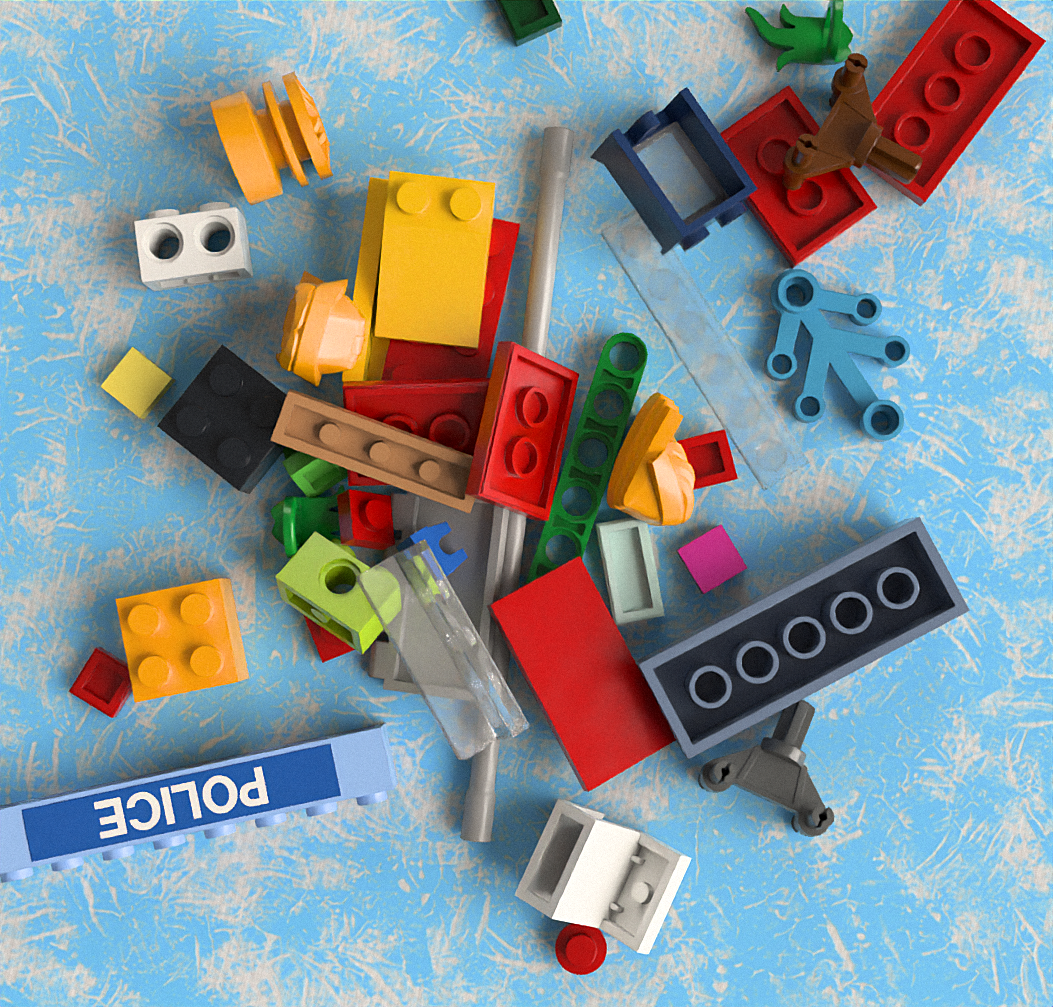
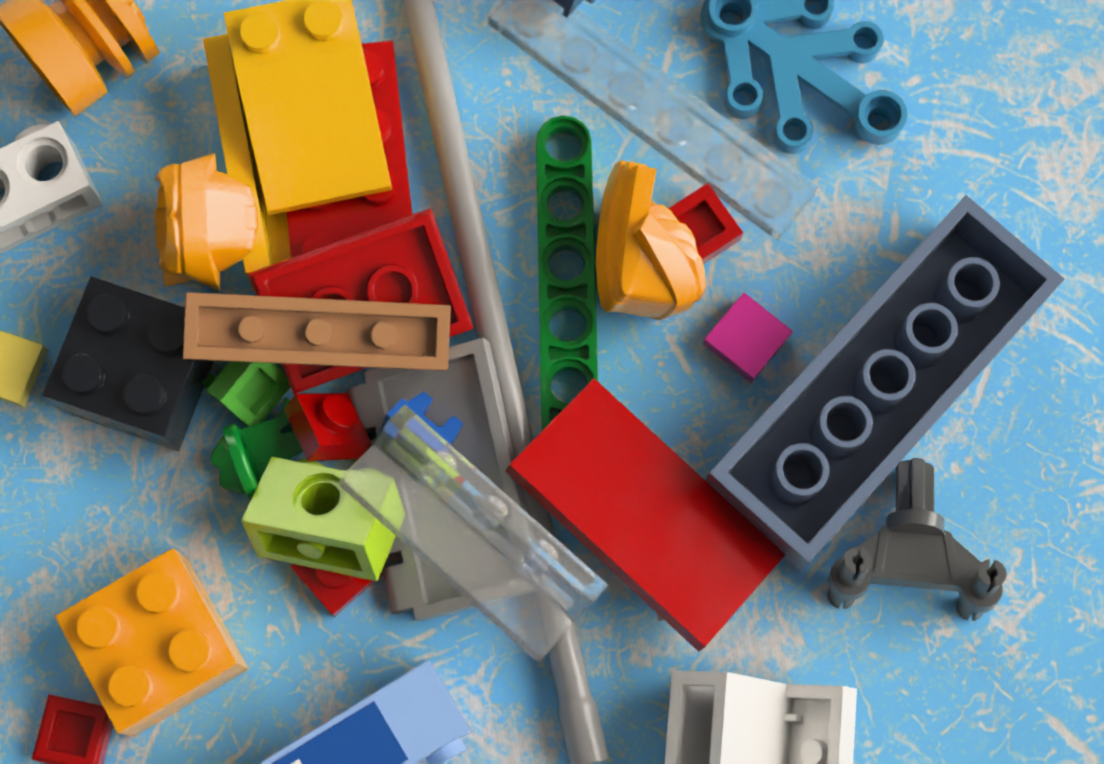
camera: 25 degrees left, 10 degrees down
(522, 432) = (477, 260): red tile -> none
(629, 570) = (657, 382): light aqua tile -> none

